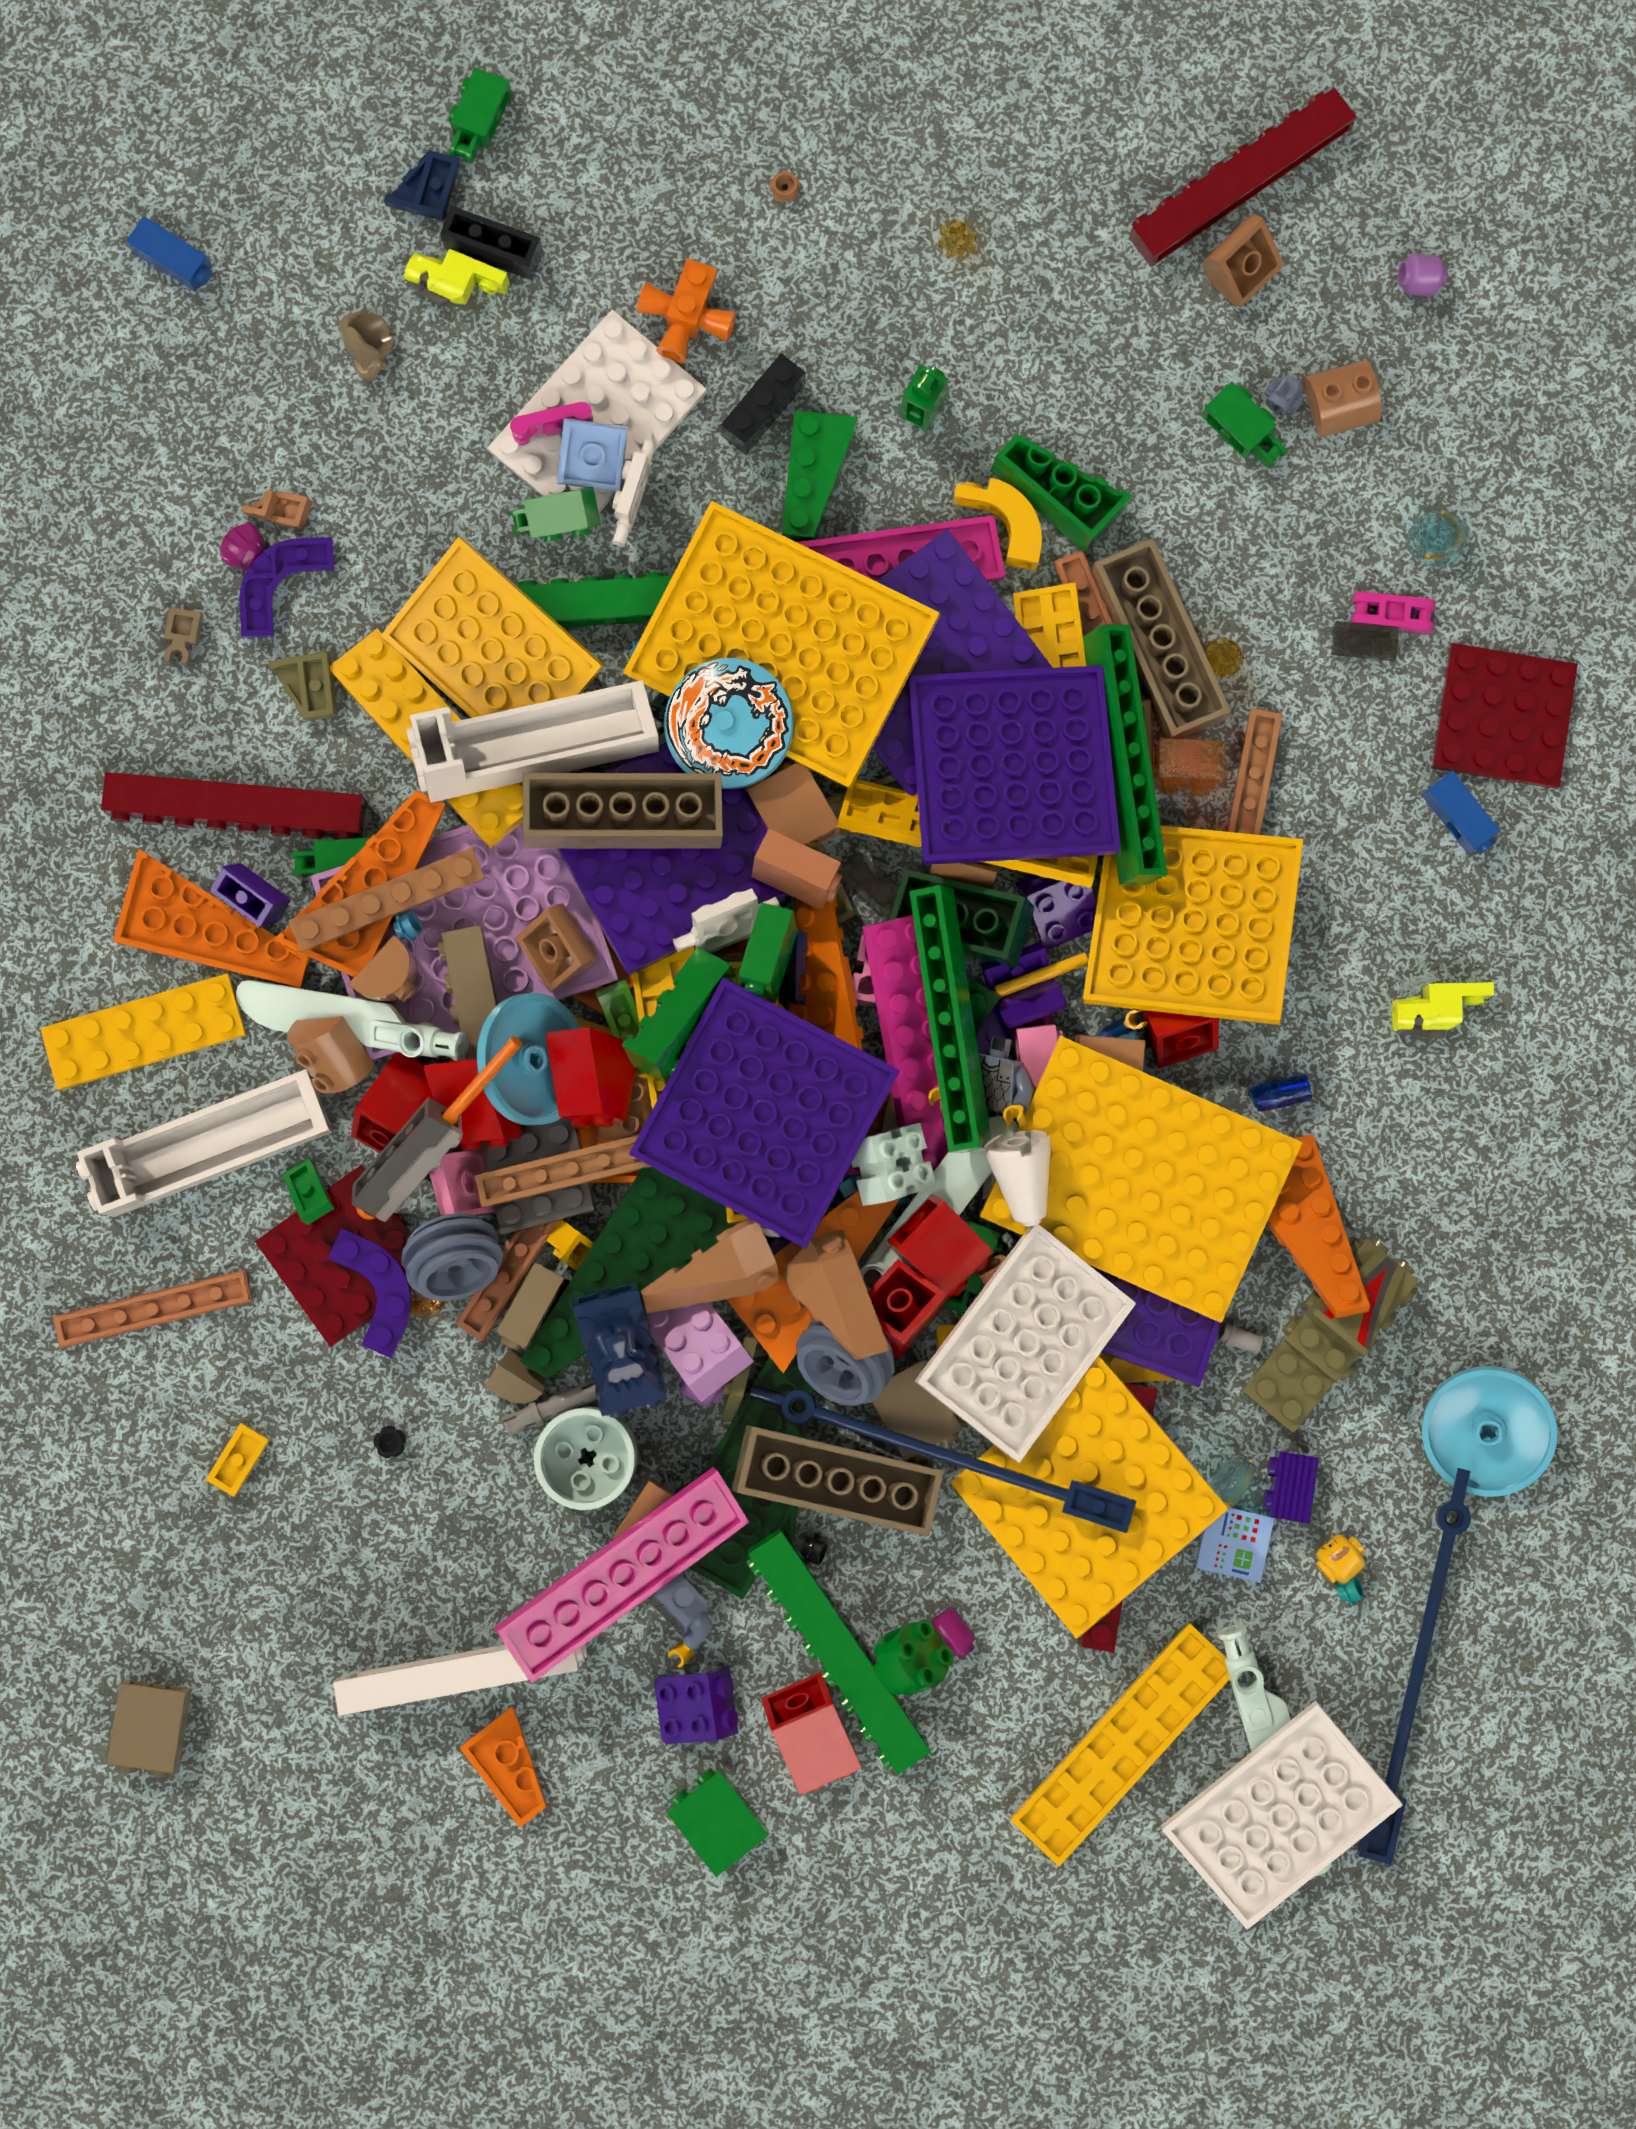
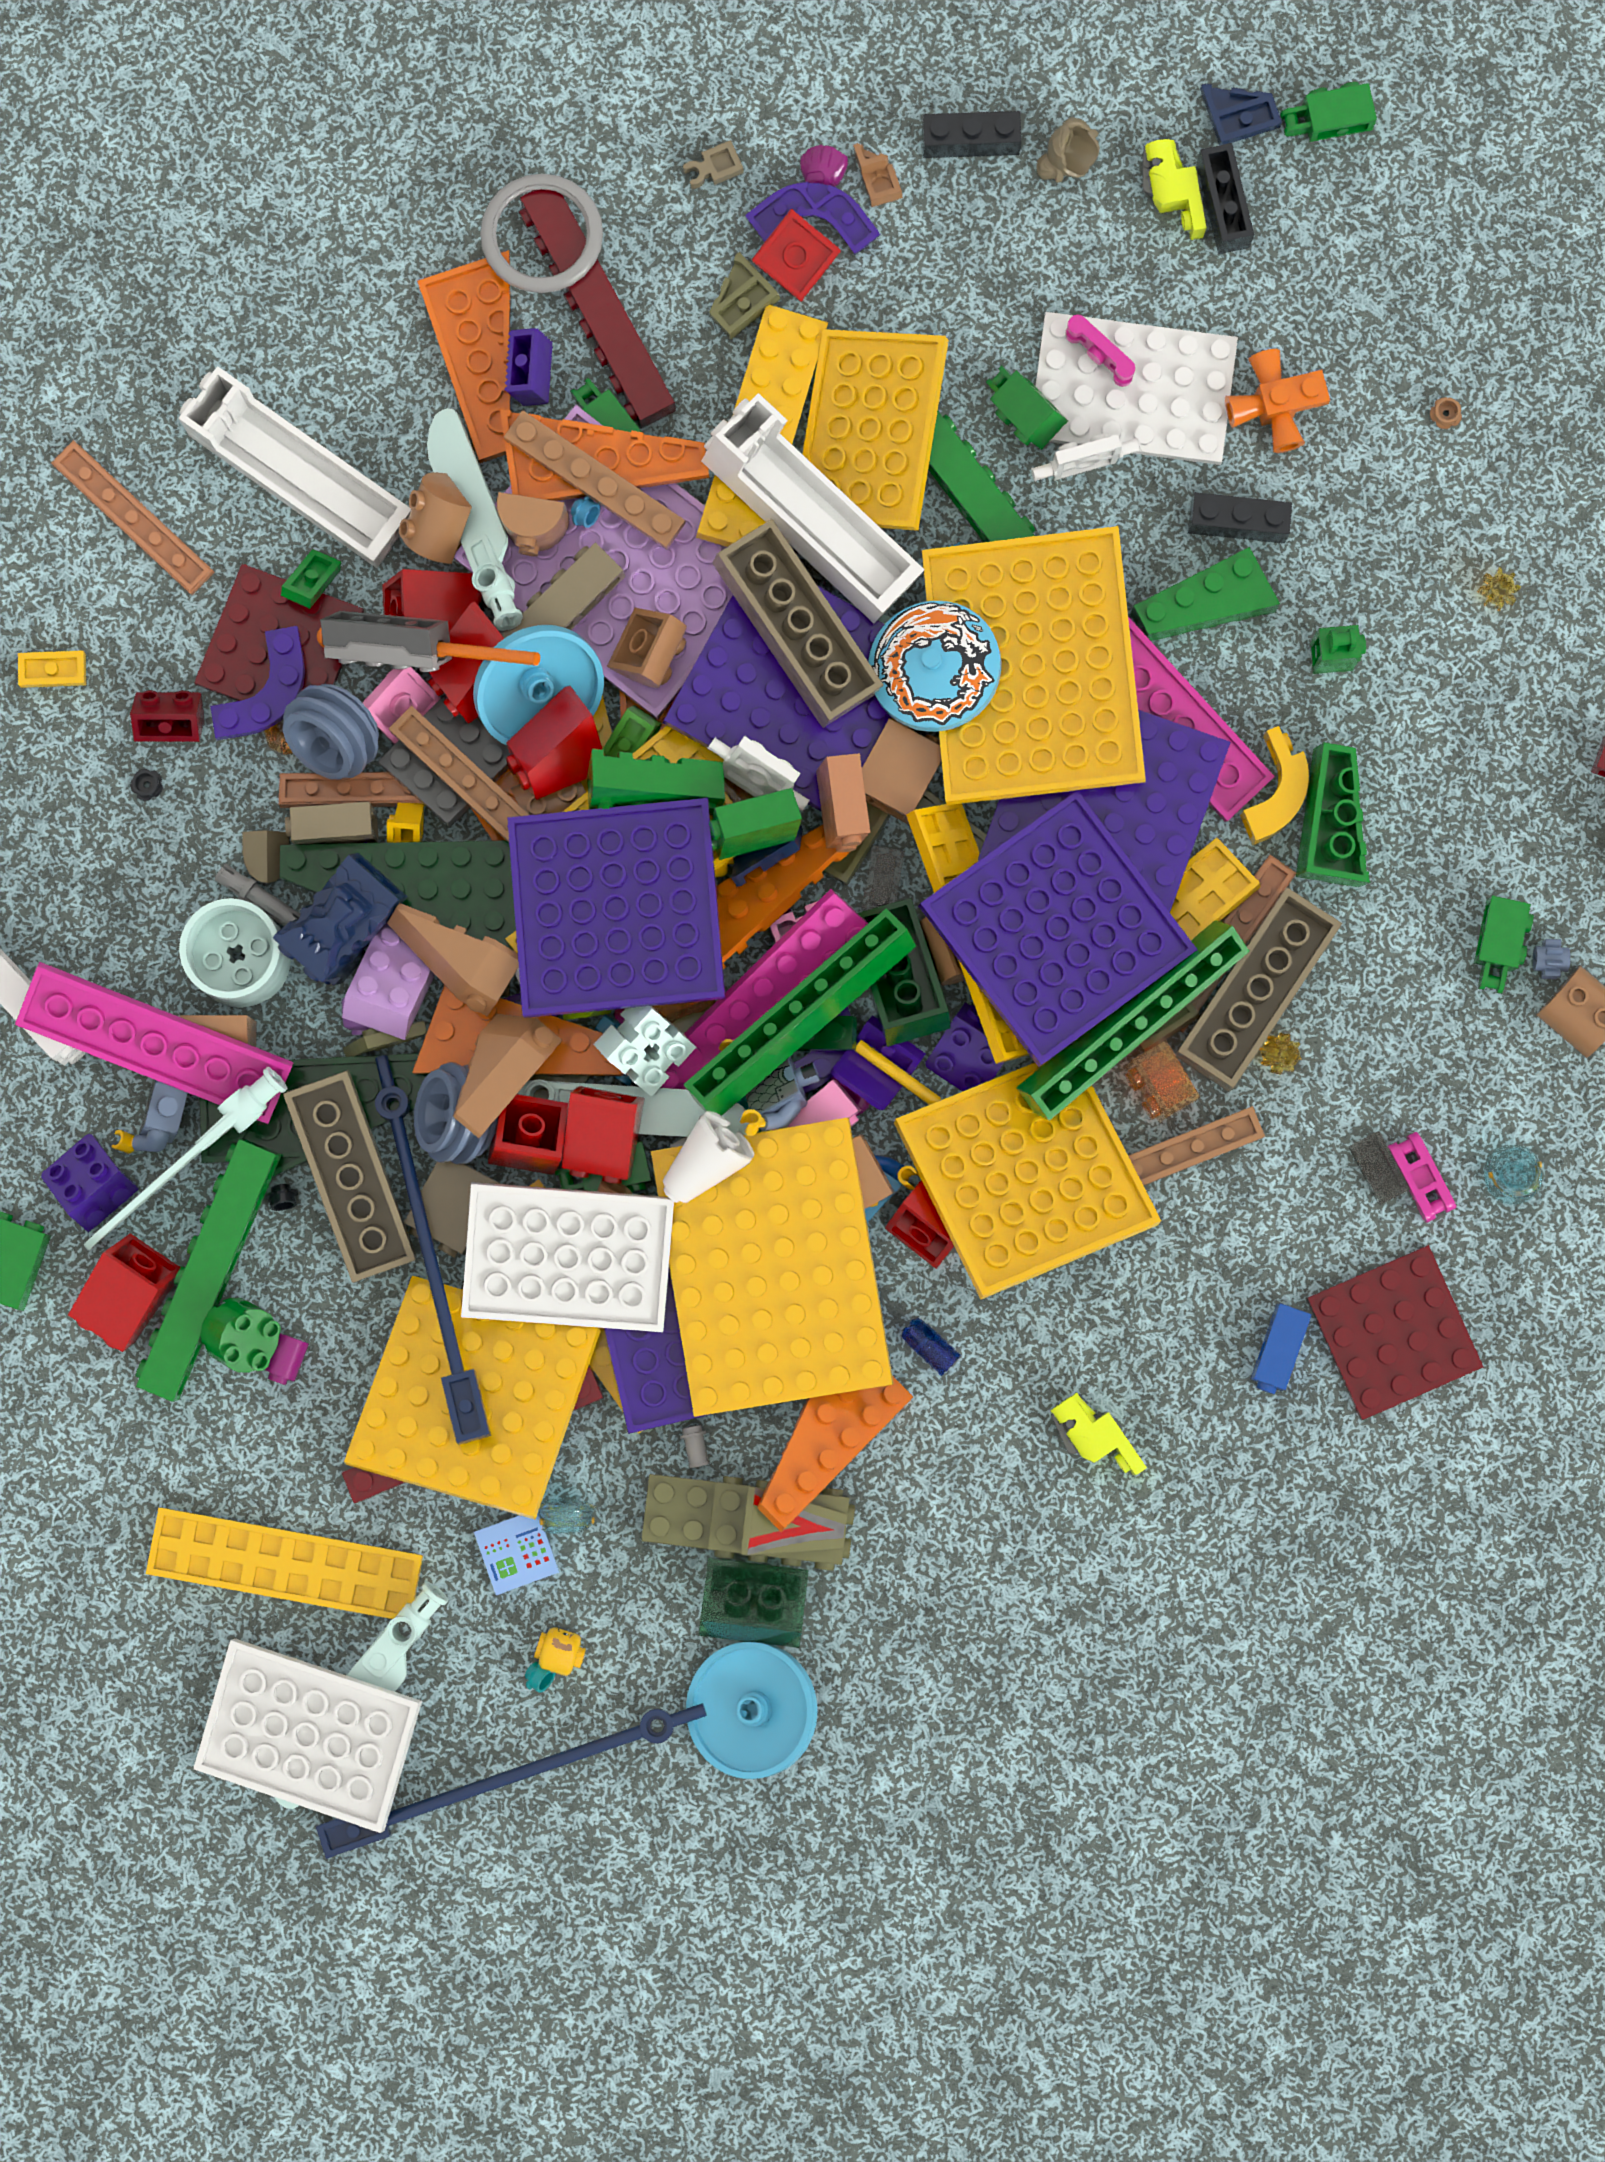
camera: 60 degrees right, 0 degrees up
(143, 1032) = (358, 357): yellow plate -> none
(173, 853) = (550, 283): none -> light grey wedge
(299, 410) = (971, 134): none -> black brick
(303, 617) = (795, 255): none -> red plate
(345, 1387) = (167, 716): none -> dark red brick
(592, 454) = (1094, 401): light blue tile -> none
(725, 1539) = (238, 1112): none -> light aqua piece
(1291, 1486) = (594, 1570): dark purple brick -> none
(1404, 1372) = (753, 1602): none -> clear green brick

